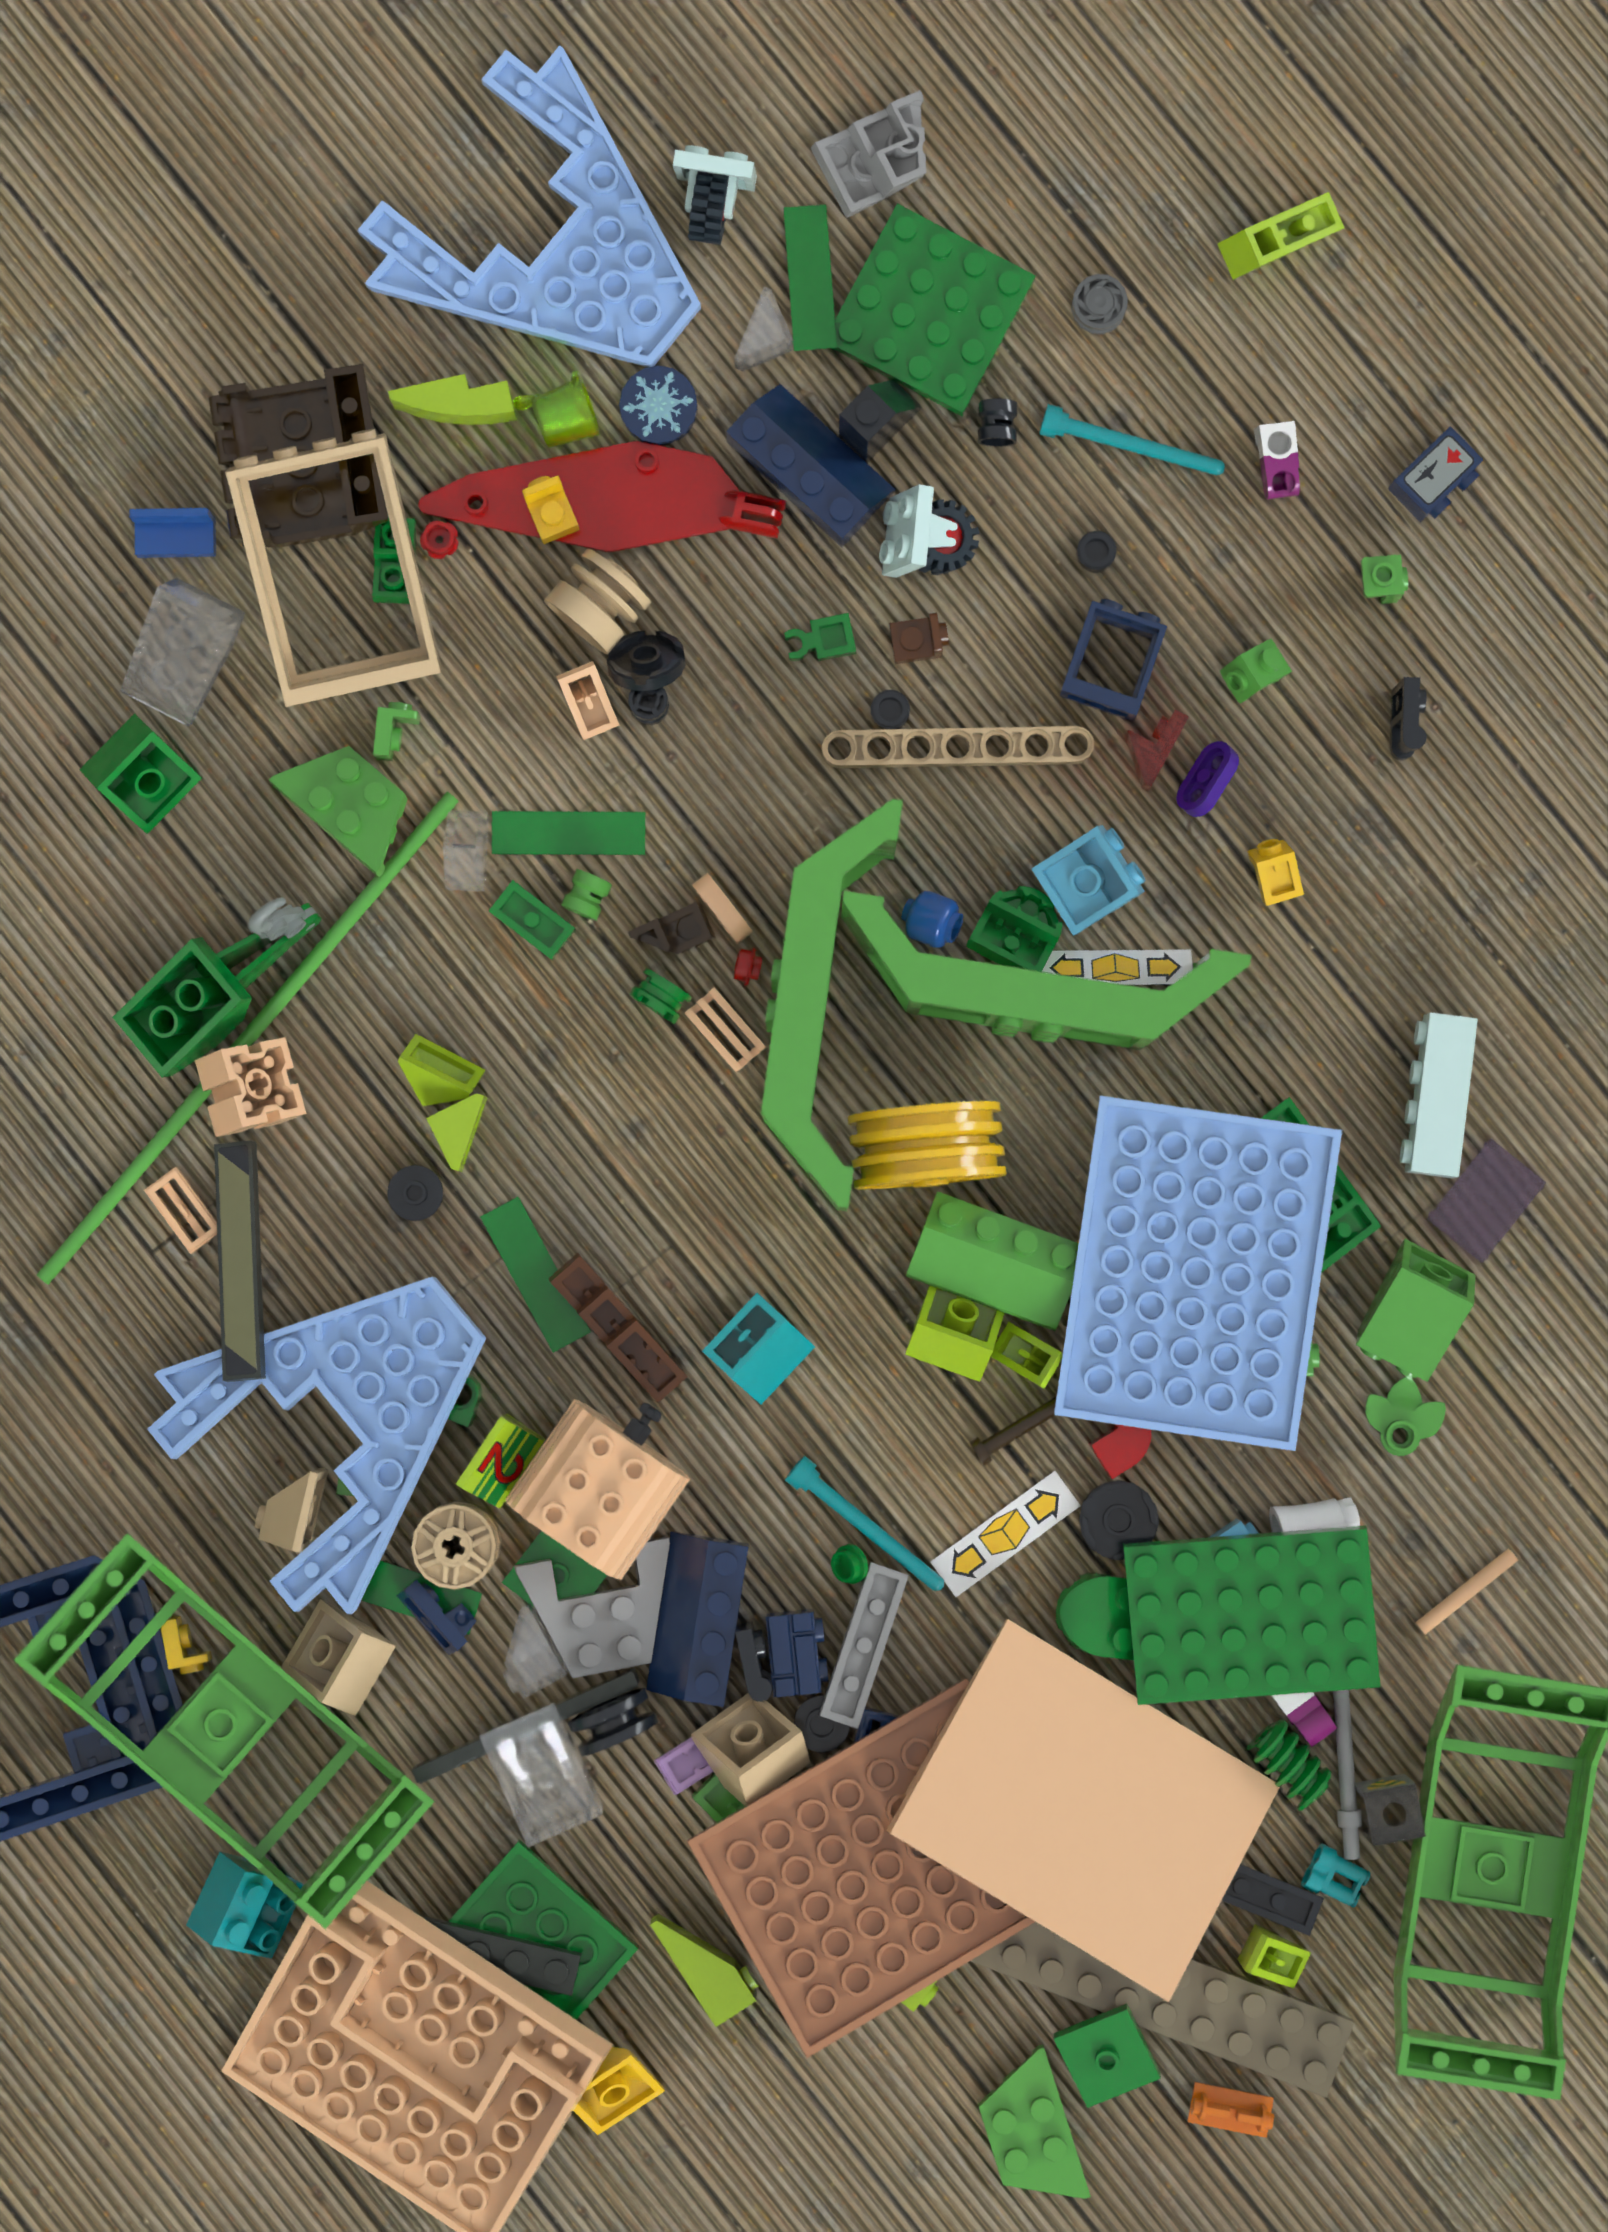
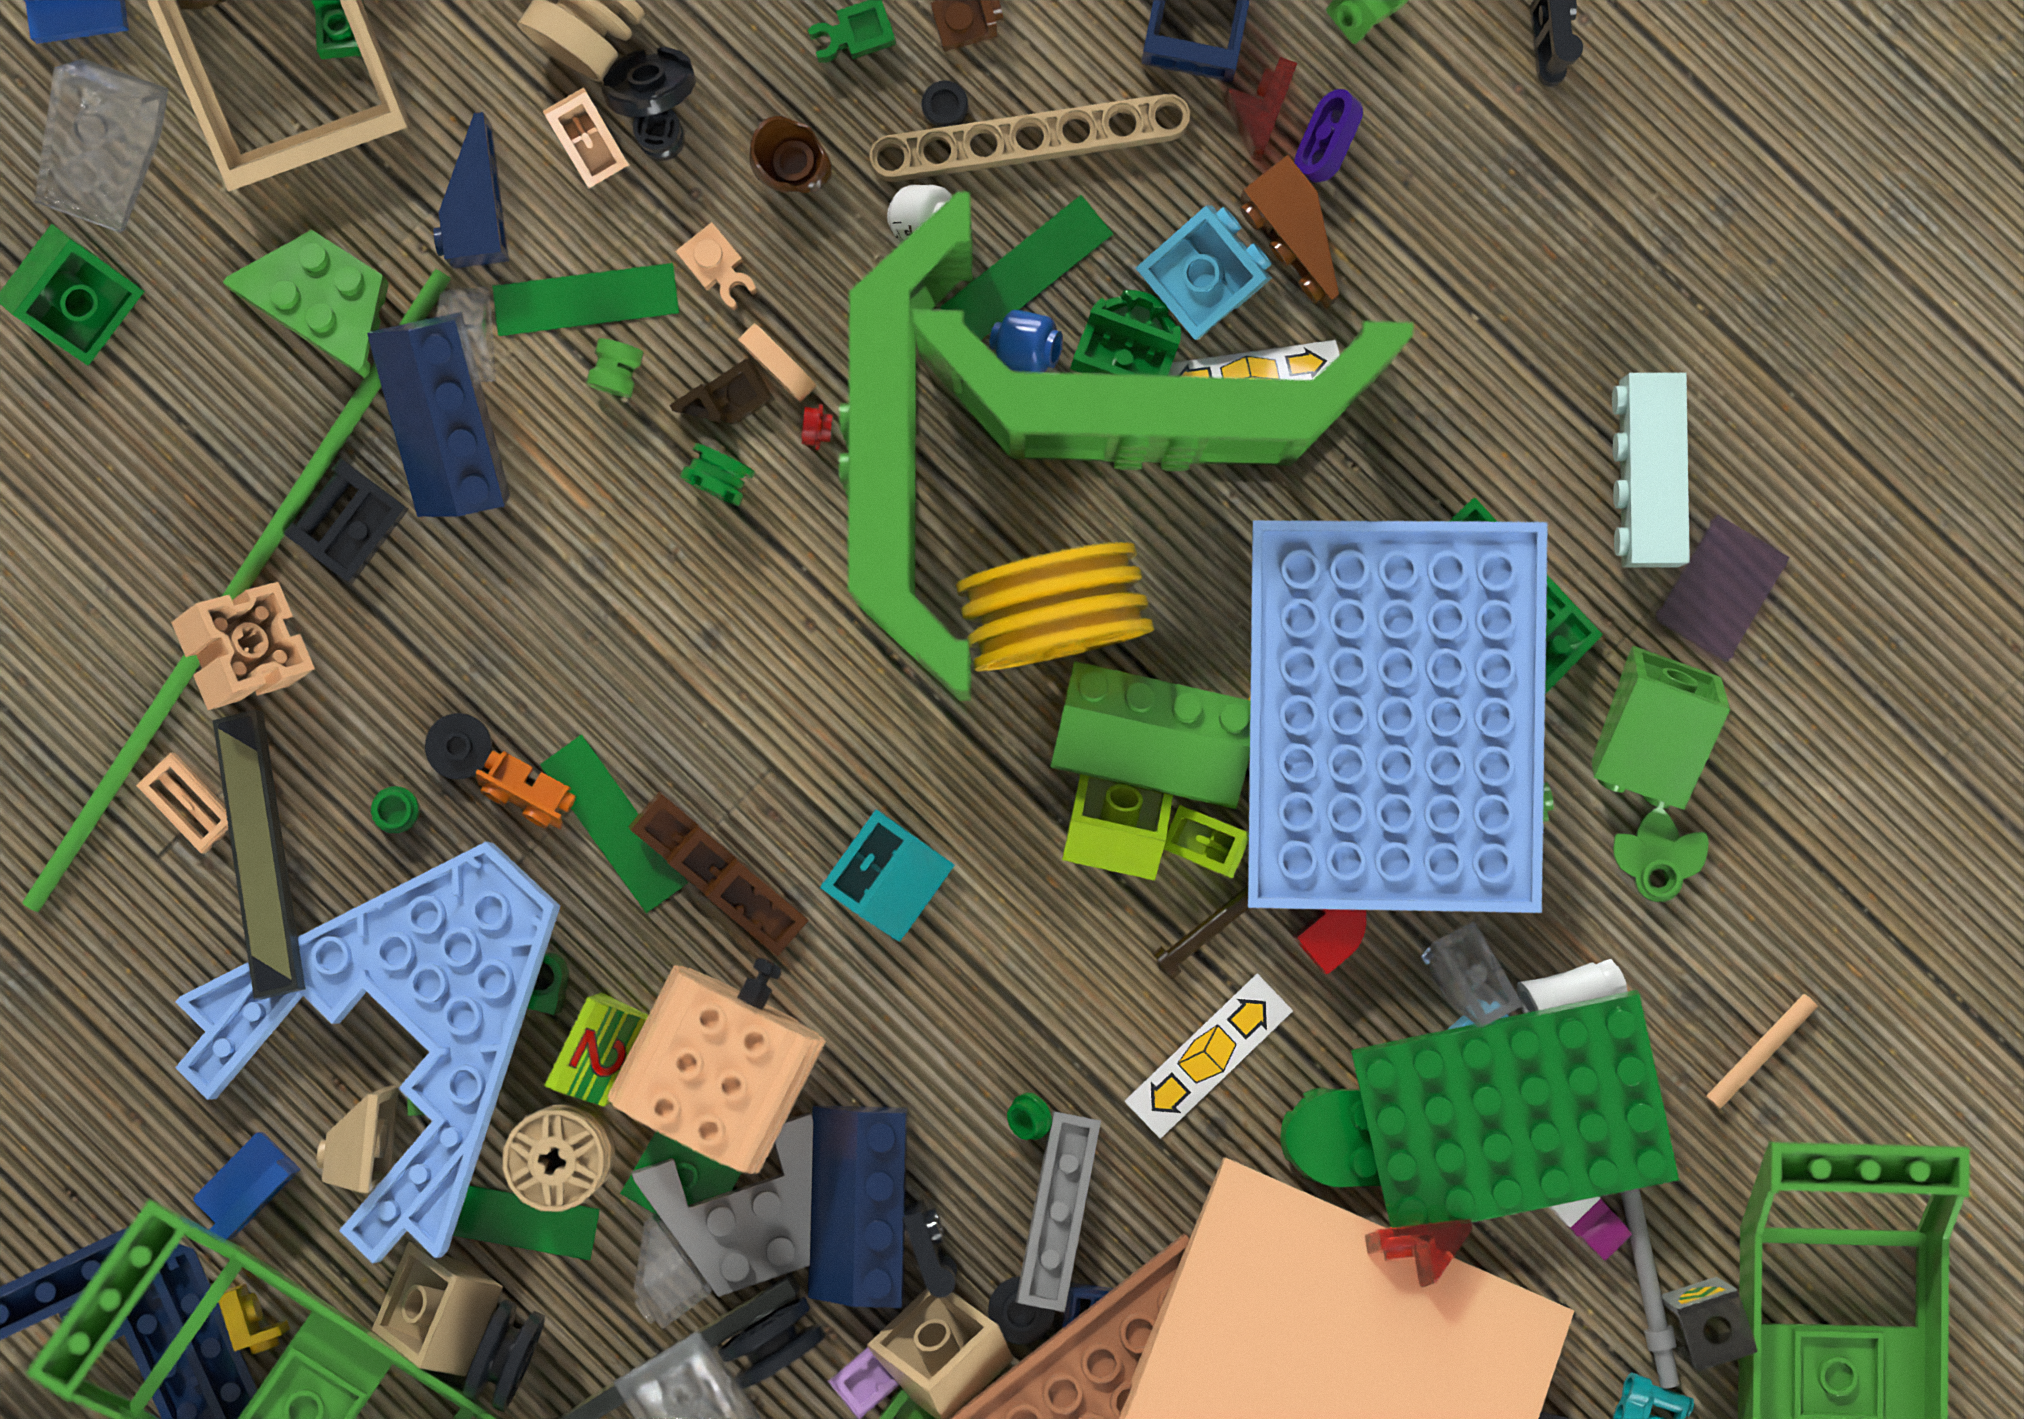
camera: 10 degrees left, 0 degrees up
(191, 1533) = (245, 1185): none -> blue panel
(196, 996) = (162, 548): green slope -> none
(355, 1001) = (357, 530): none -> black plate
(355, 1238) = (395, 809): none -> green plate
(387, 735) = (354, 211): bright green bracket -> none
(390, 1702) = (504, 1355): none -> black wheel
(436, 918) = (440, 417): none -> dark blue slope
(438, 1073) = (466, 601): lime slope -> none
(445, 1628) = (560, 1257): dark blue hinge -> none
(457, 1127) = (497, 663): lime slope -> none
(476, 1248) = (507, 783): none -> orange hinge
(485, 746) = (472, 206): none -> dark blue slope
(532, 920) = (554, 406): green plate -> none
(679, 815) = (713, 261): none -> light nougat plate
(702, 1004) = (770, 479): light nougat tile -> none
(755, 738) = (788, 156): none -> reddish brown hair
(795, 1652) = (978, 1230): dark blue brick -> none
(806, 1477) = (965, 1021): teal piece -> none
(856, 799) = (913, 207): none -> white head
(941, 856) = (1030, 267): none -> green sticker
(1117, 1516) = (1338, 1017): black tile -> none
(1168, 844) = (1292, 217): none -> dark orange slope
(1169, 1712) = (1432, 1245): none -> clear red slope
(1231, 1496) = (1471, 976): none -> clear slope
(1276, 871) = (1424, 233): yellow bracket -> none
(1291, 1763) = (1584, 1282): green piece -> none

